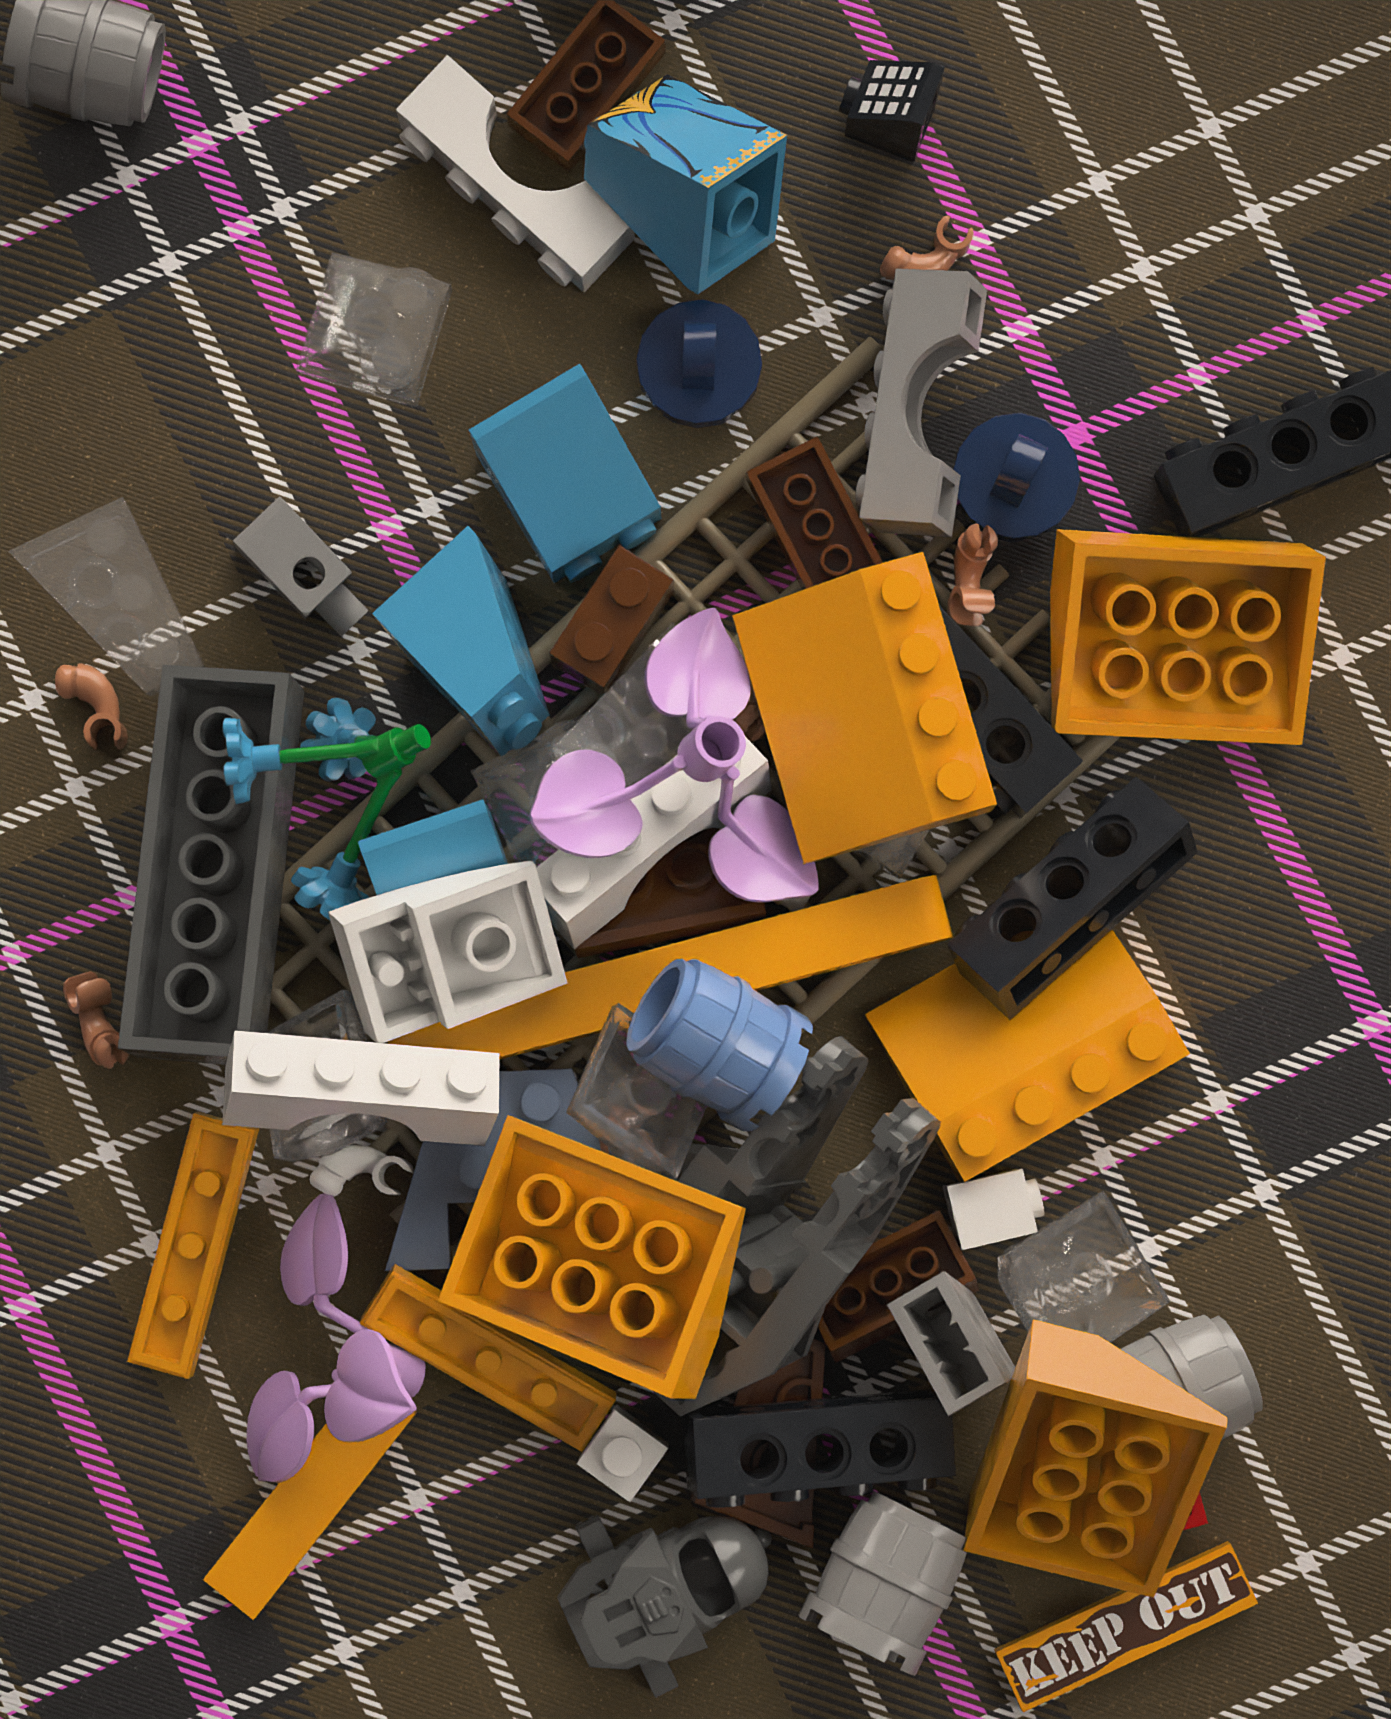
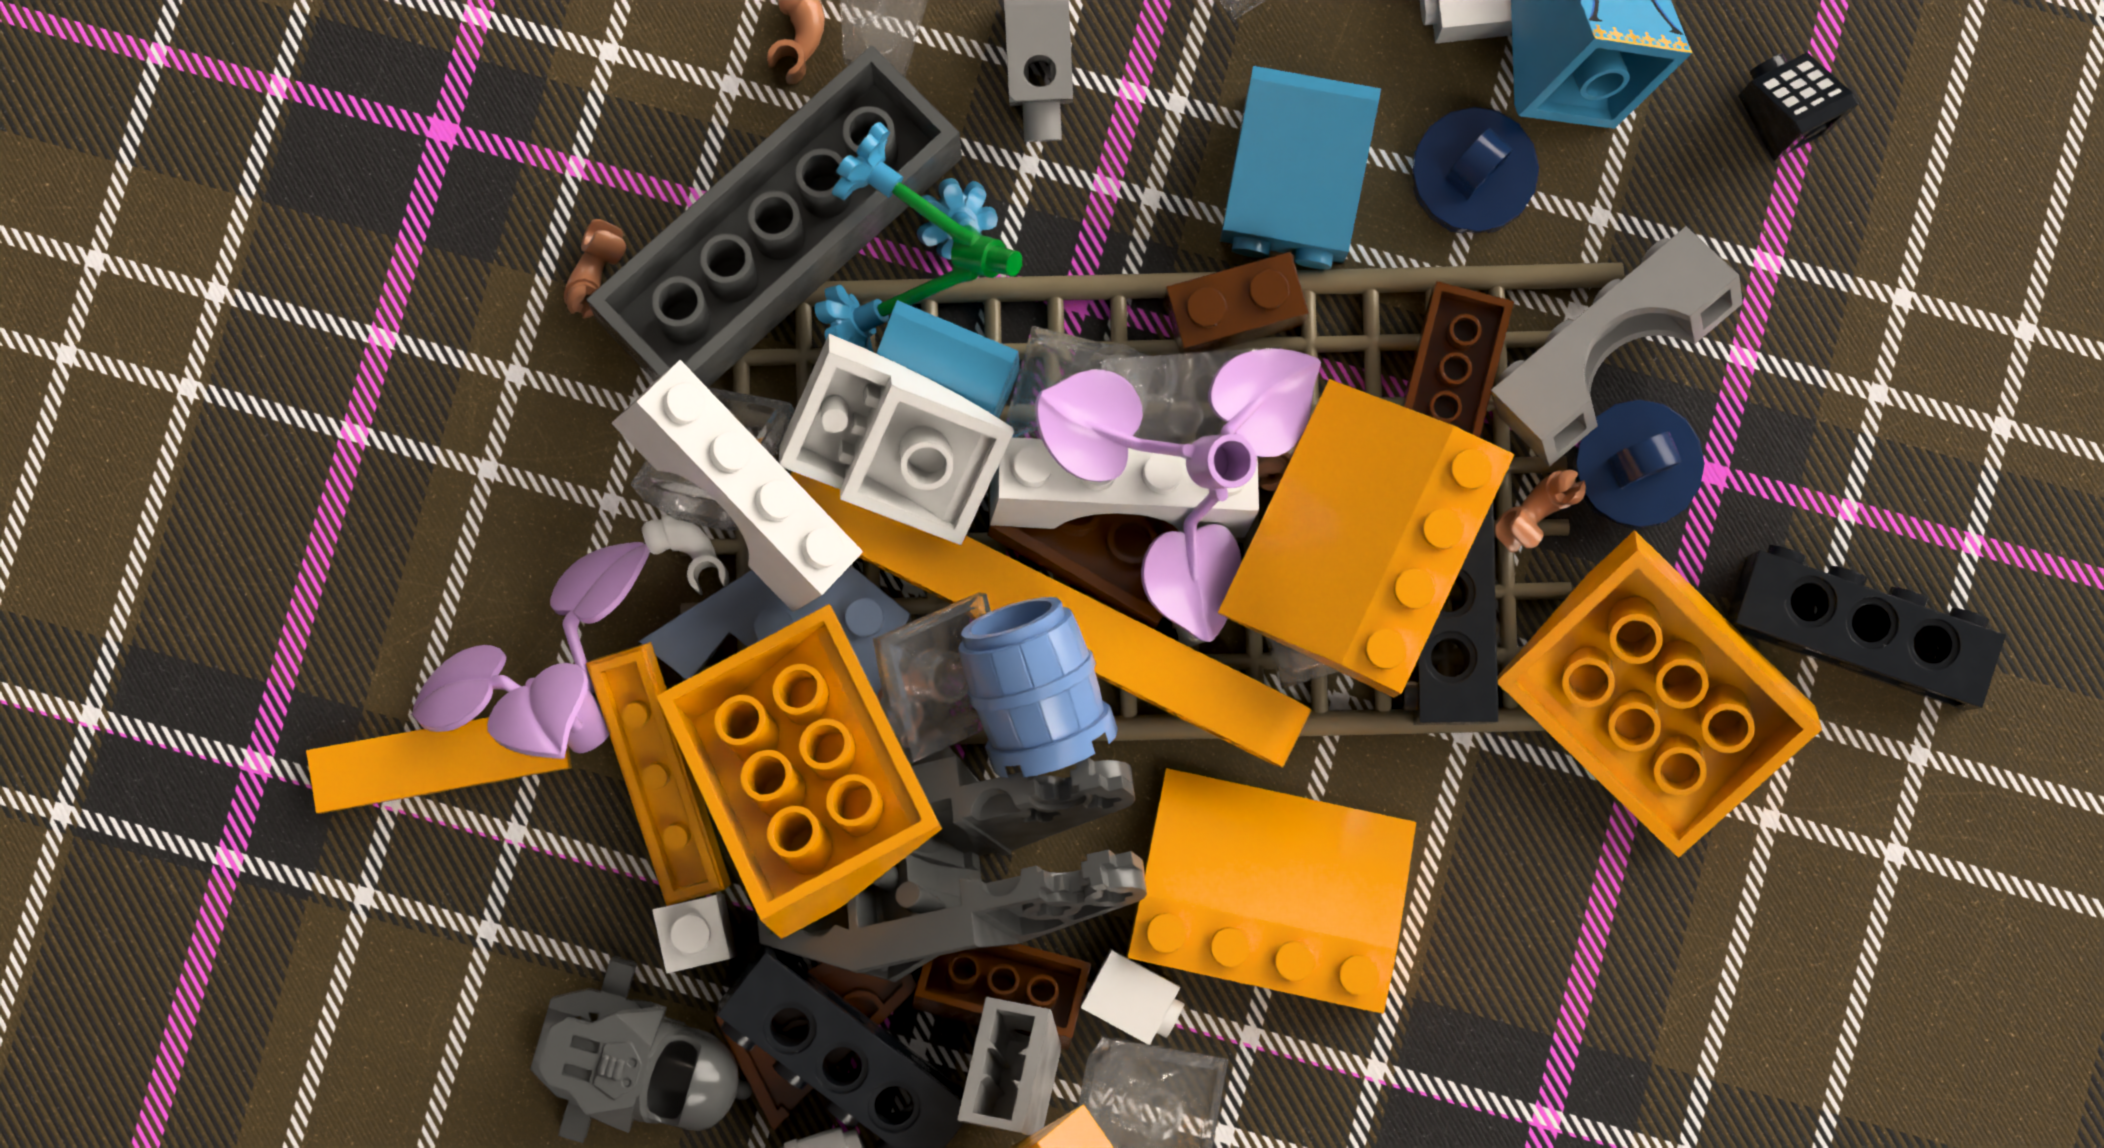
camera: 45 degrees right, 0 degrees up
(193, 1246) = (515, 498): light orange tile -> none
(468, 642) = (1116, 225): dark azure slope -> none
(940, 259) = (1729, 250): nougat arm -> none
(1066, 929) = (1373, 837): black brick -> none

